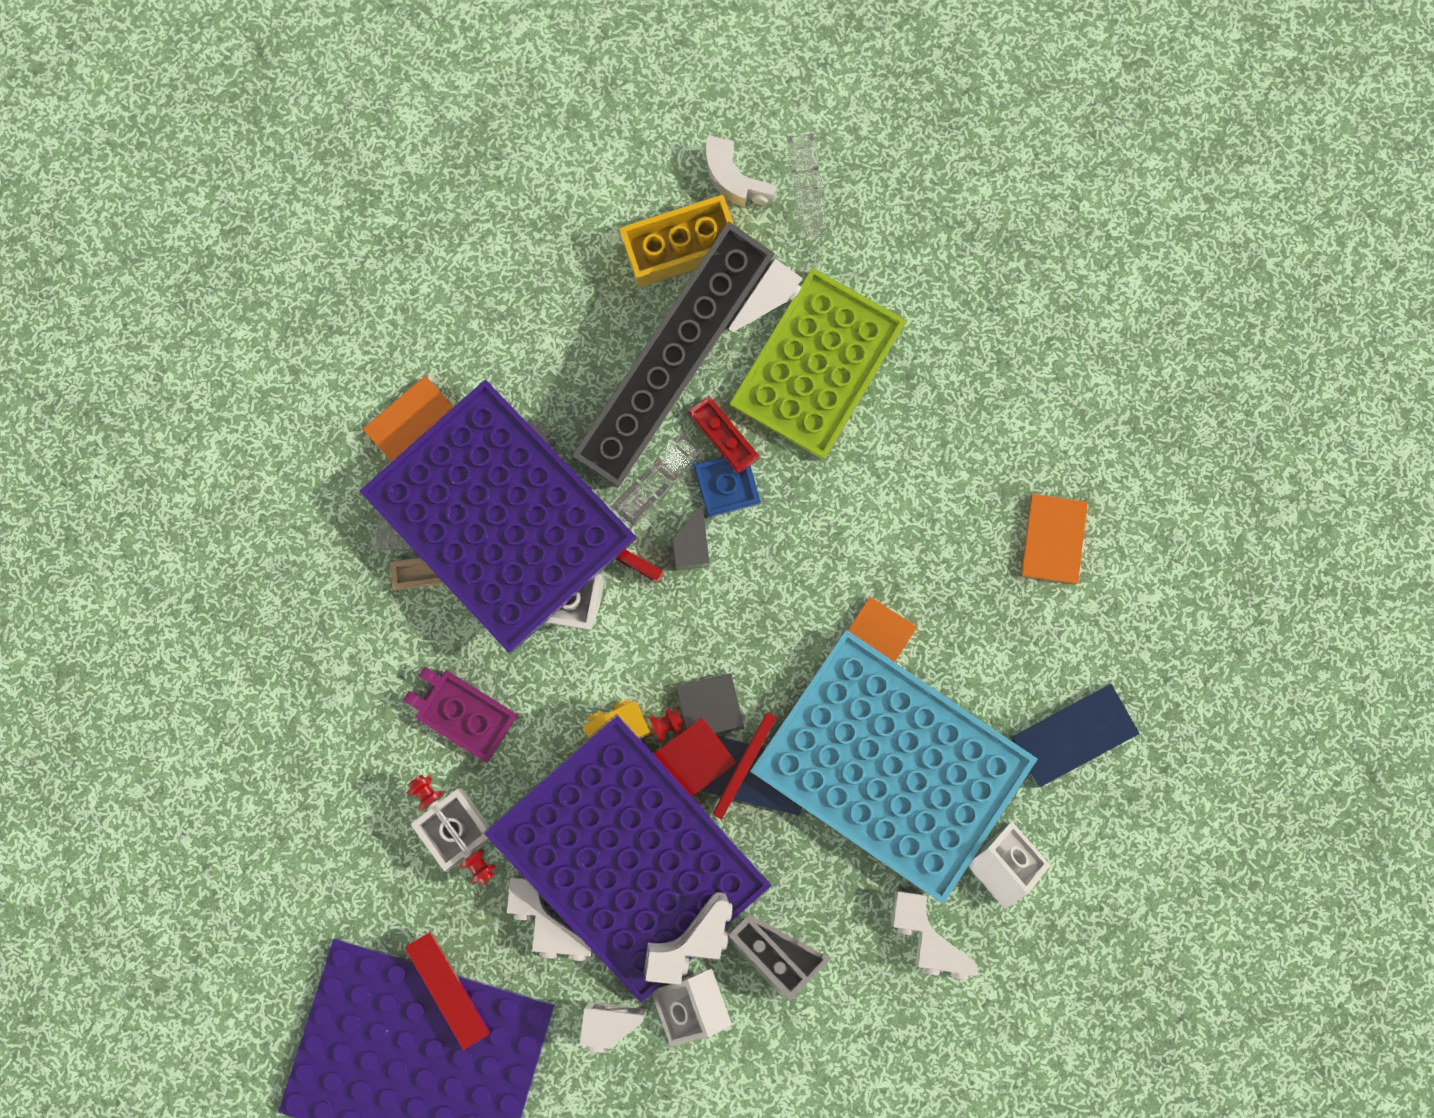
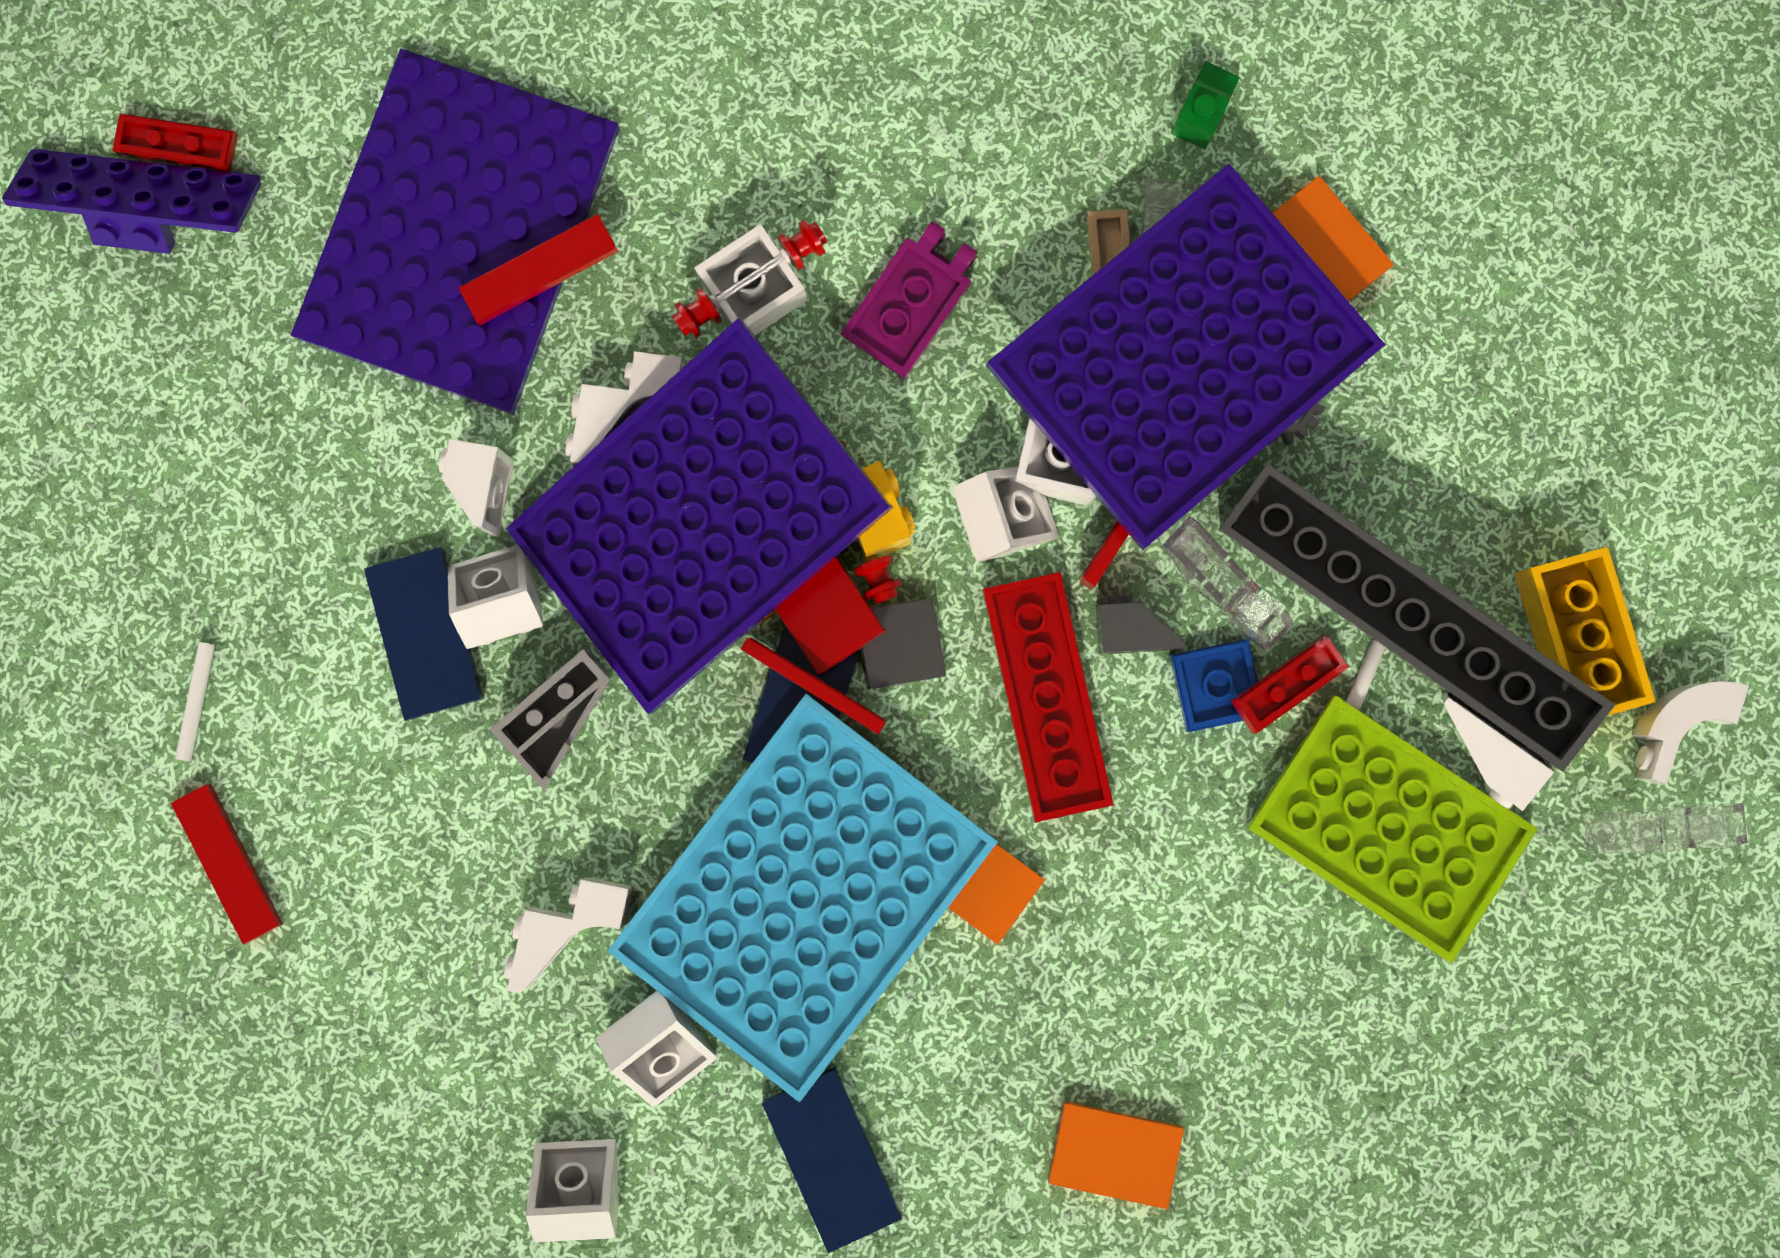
camera: 90 degrees right, 5 degrees up
(312, 509) = (1205, 105): none -> green arch
(614, 638) = (1003, 514): none -> white slope
(702, 939) = (579, 612): white arch -> none
(714, 384) = (1365, 674): none -> white bar
(722, 1061) = (419, 637): none -> dark blue tile
(741, 601) = (1047, 697): none -> red plate
(1113, 918) = (573, 1191): none -> white slope

